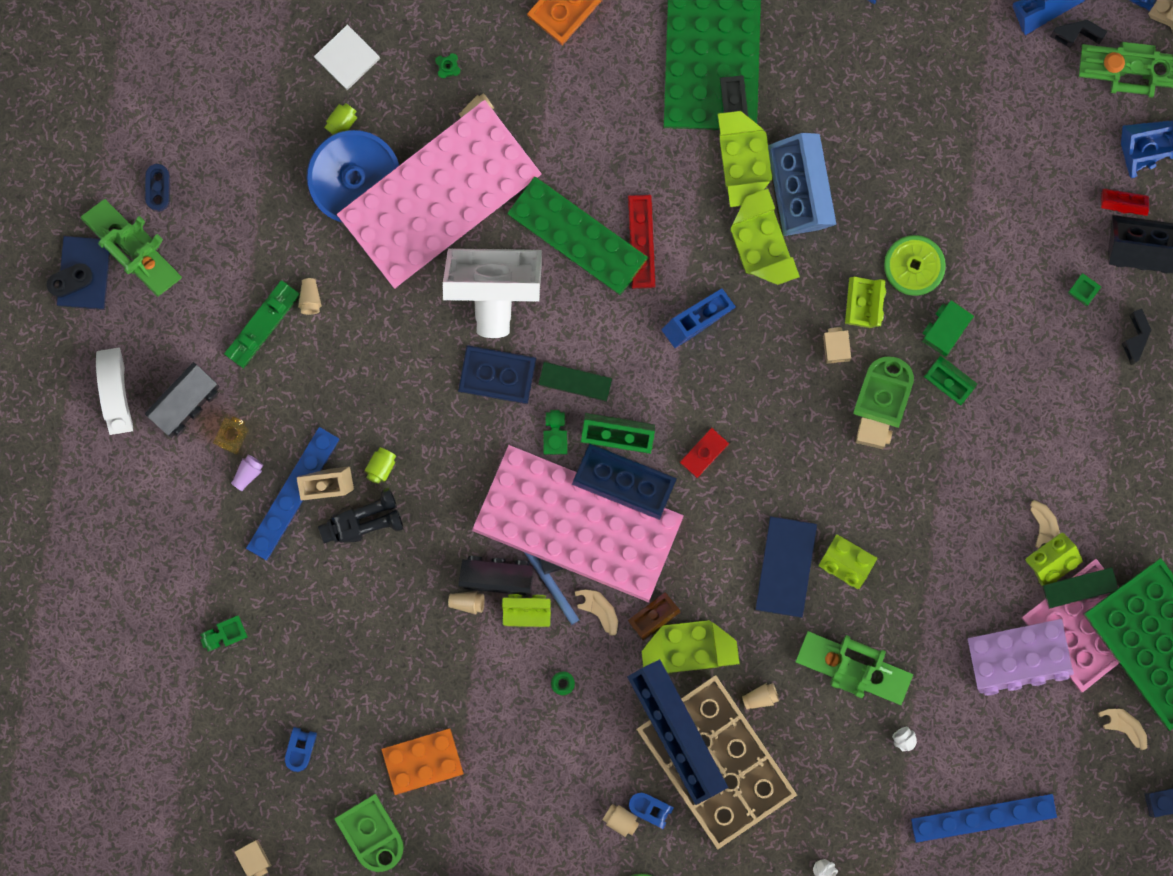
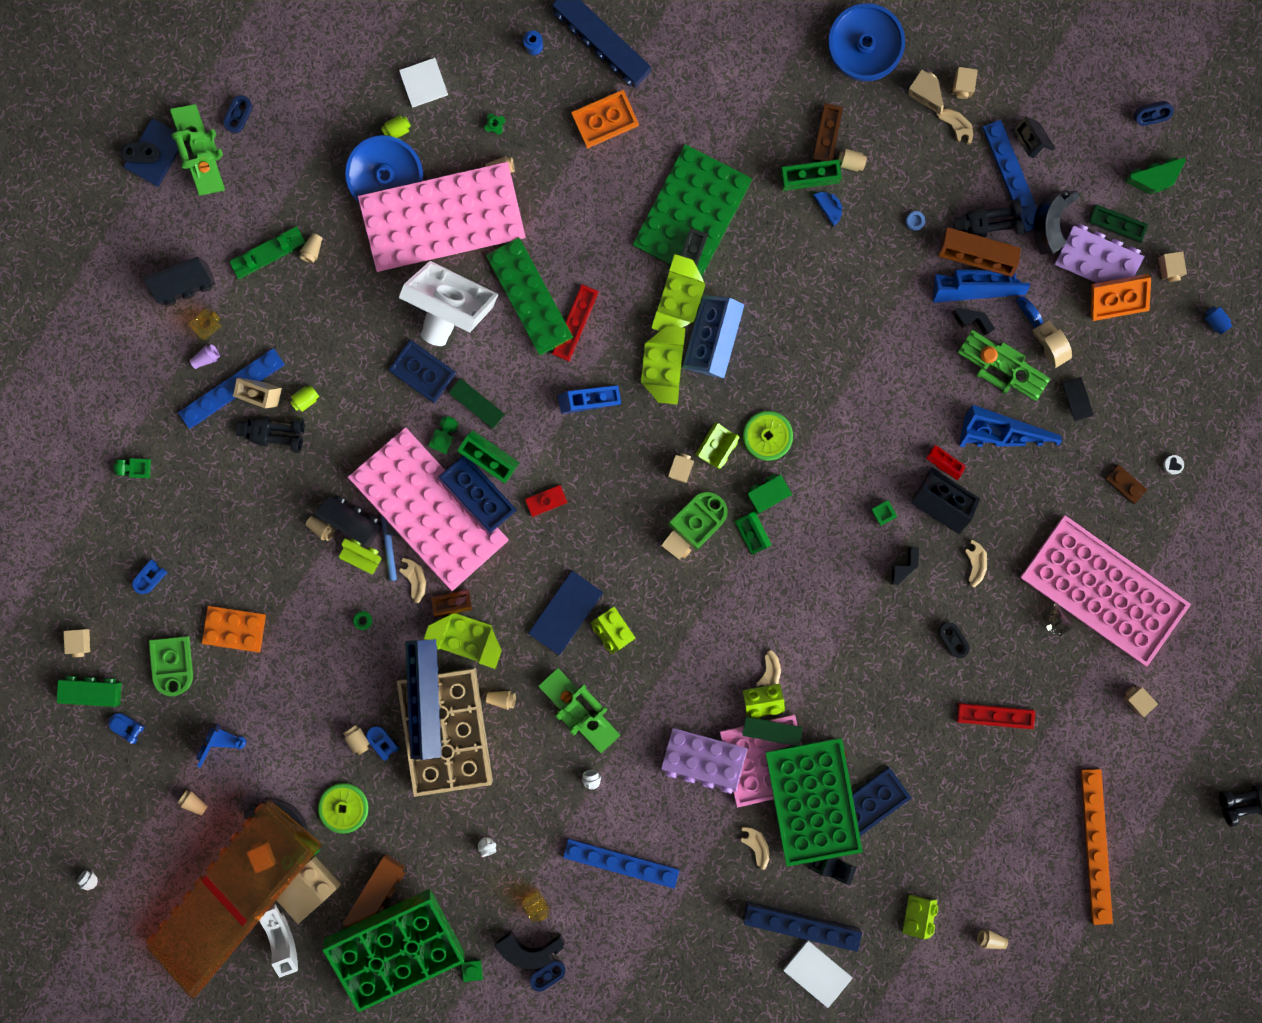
camera: 20 degrees right, 5 degrees up
(112, 391) = (131, 248): white arch -> none

